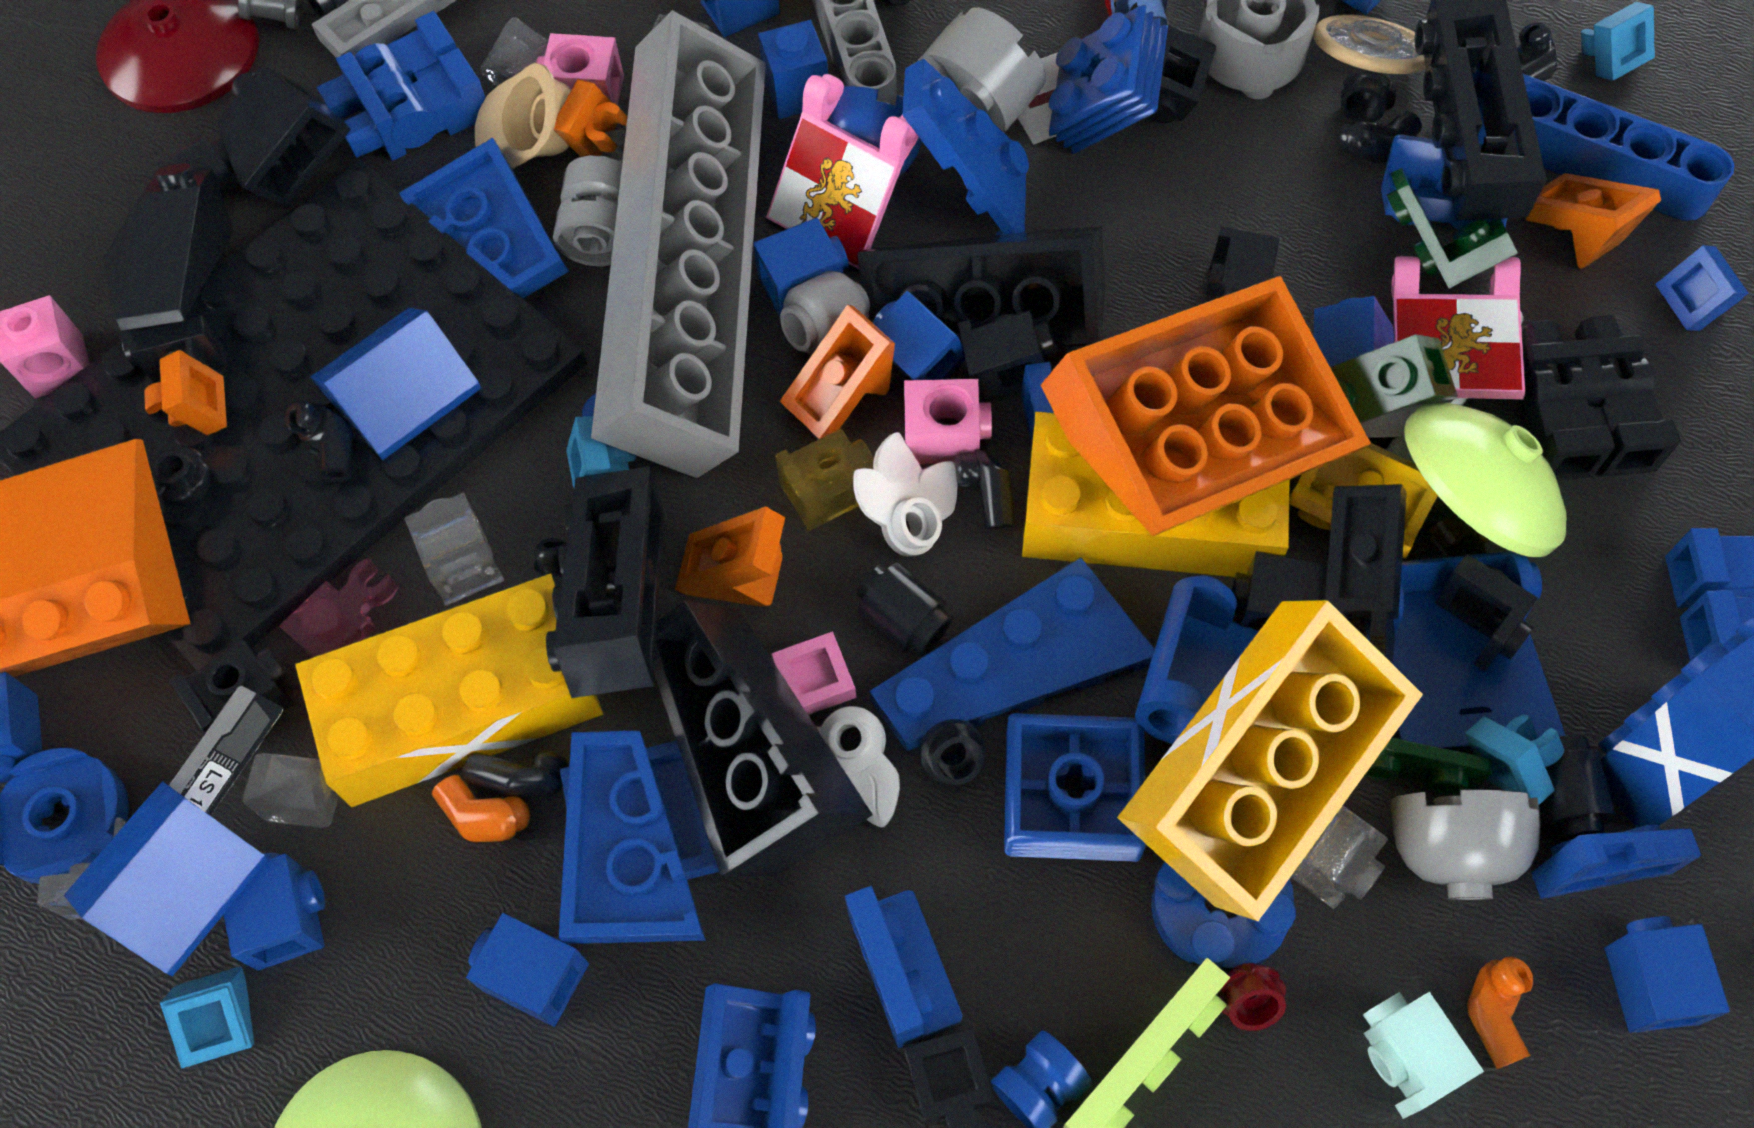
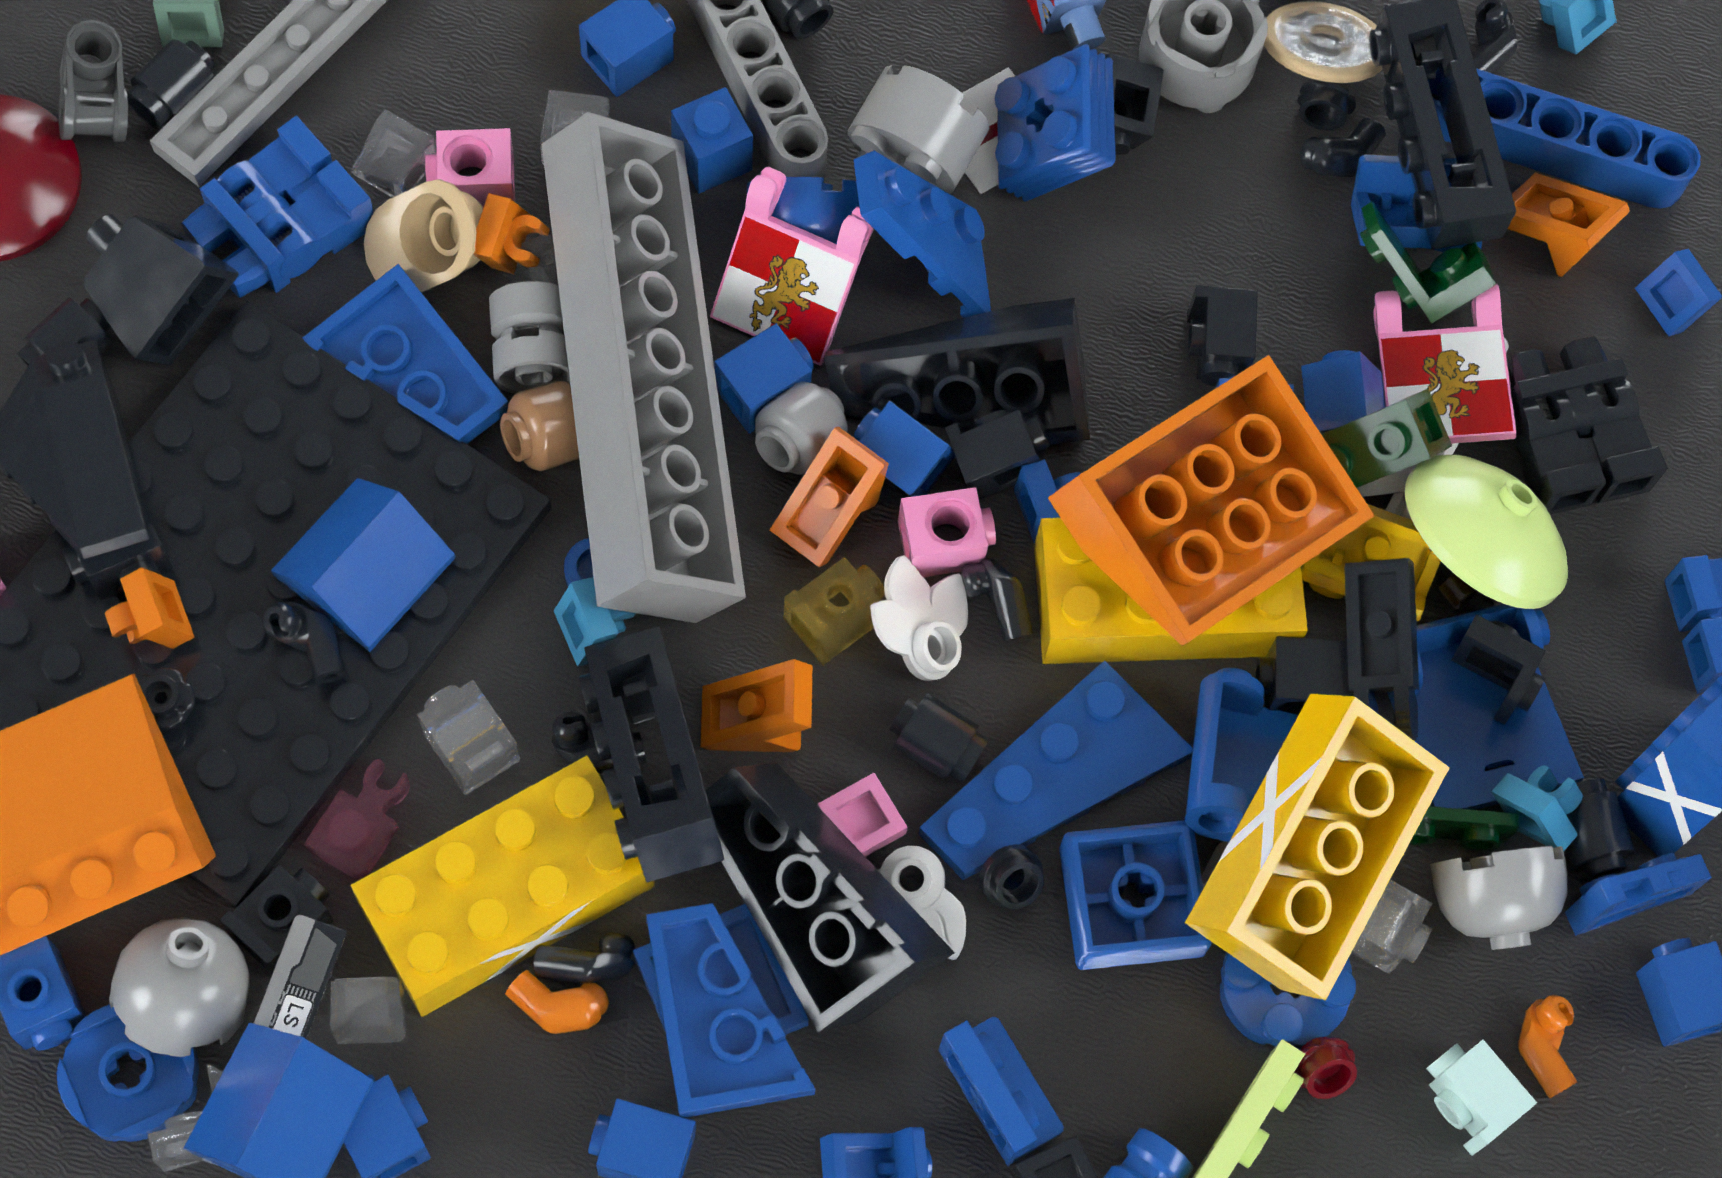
camera: 20 degrees left, 5 degrees up
(116, 738) = (180, 986): none -> light grey cylinder
(582, 285) = (541, 426): none -> medium nougat head

